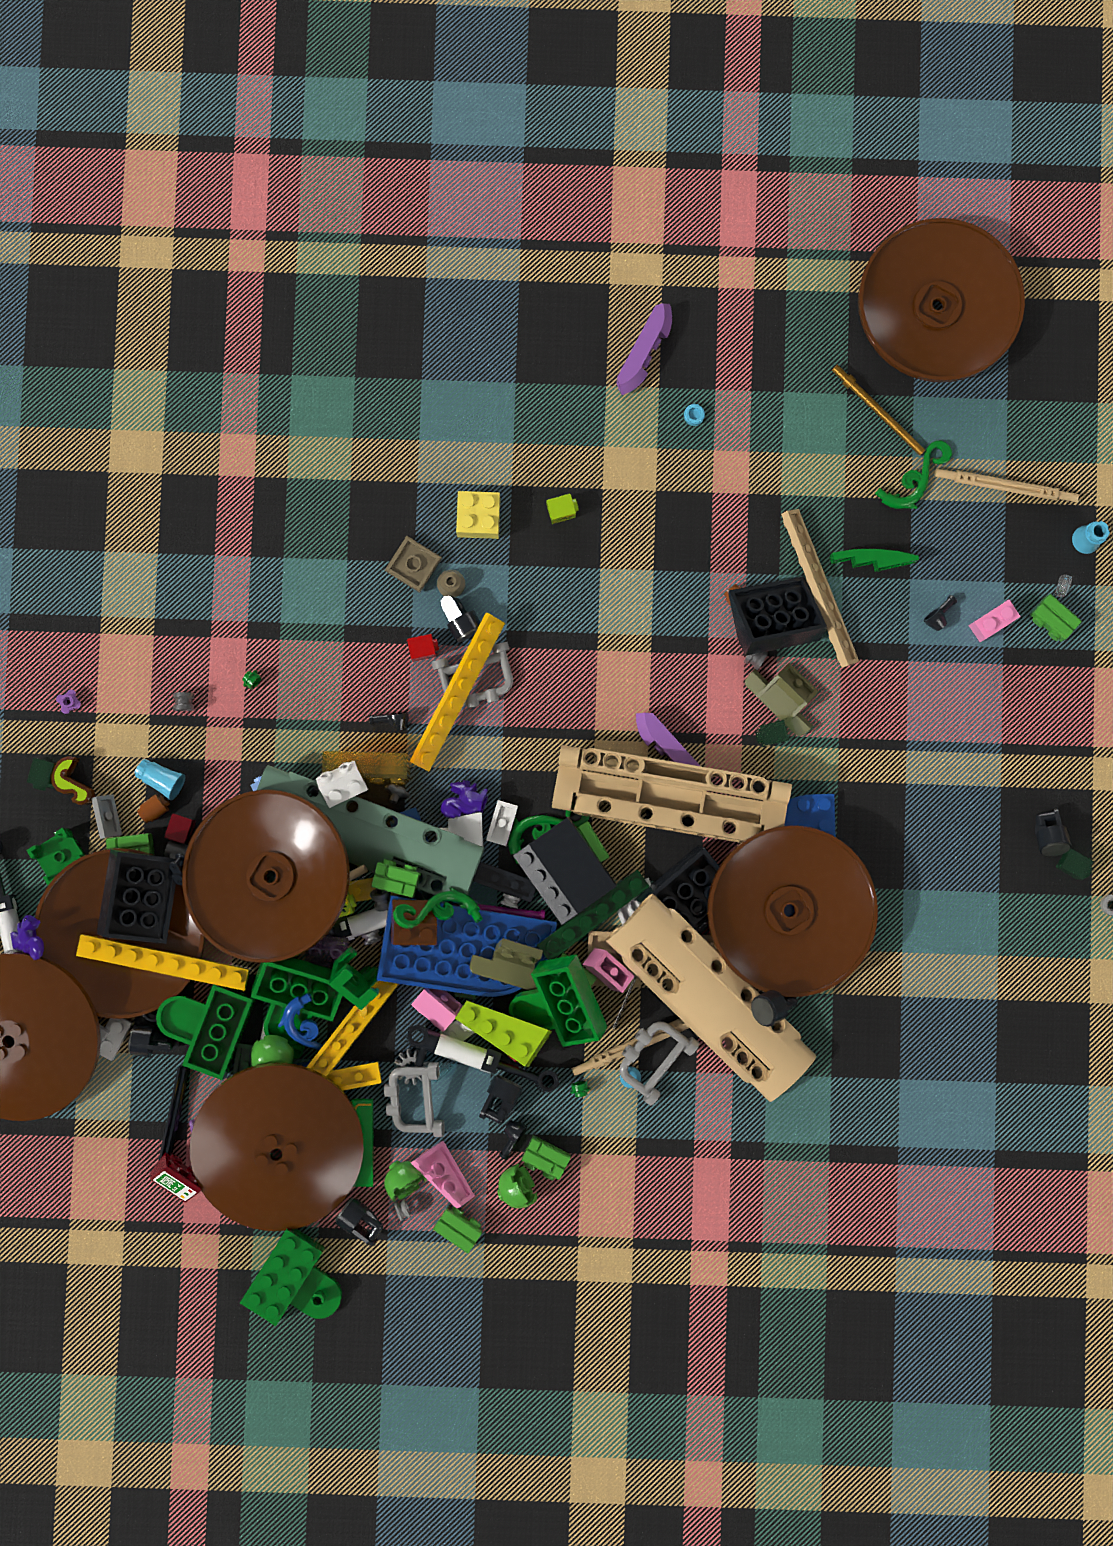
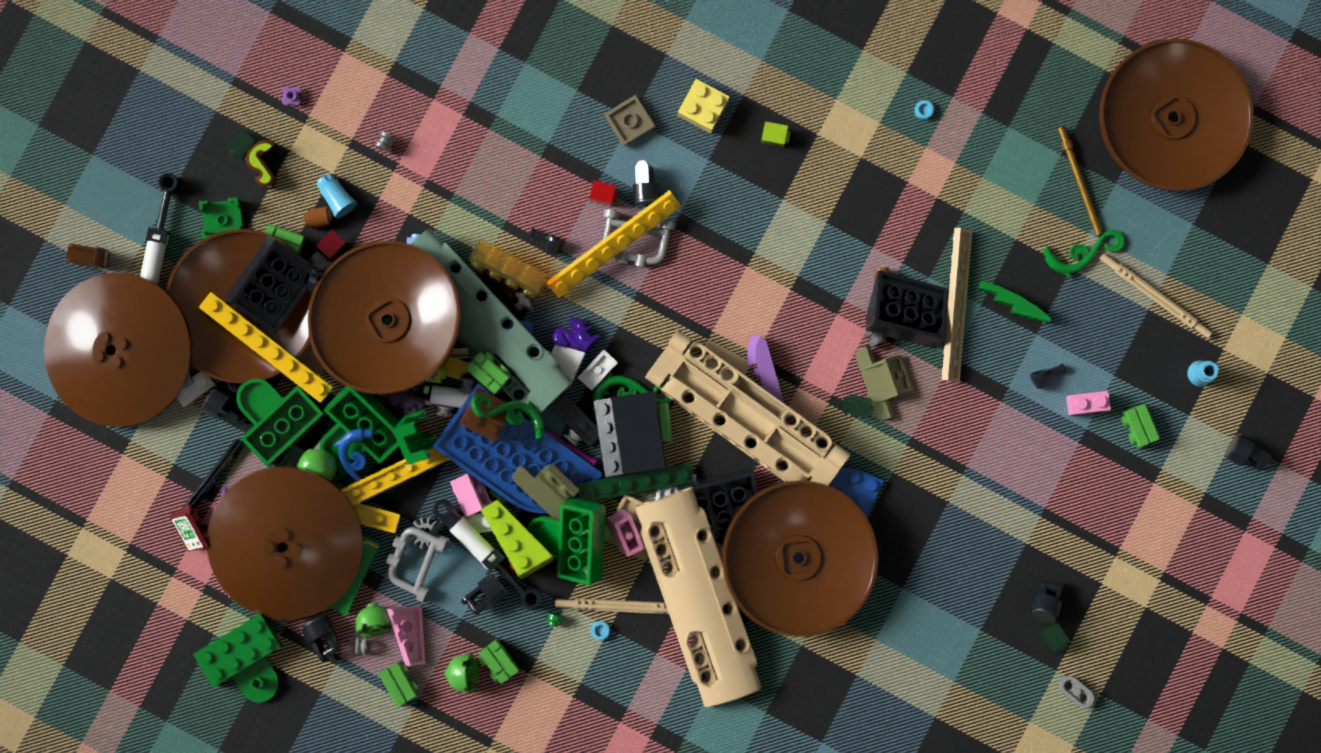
camera: 25 degrees right, 0 degrees up
(26, 938) = (164, 274): dark purple animal -> none
(106, 816) = (276, 205): light grey plate -> none
(251, 679) = (449, 151): green plate -> none
(341, 783) = (482, 273): white bracket -> none
(446, 588) = (659, 151): dark tan cone -> none
(514, 1131) = (483, 628): black bar -> none
(625, 1001) = (623, 568): black sticker -> none
(644, 1037) = (626, 603): light grey bar -> none
(656, 327) = (928, 21): medium lavender brick -> none
(771, 1007) = (743, 627): piece -> none
(1063, 585) = (1161, 402): clear tile -> none

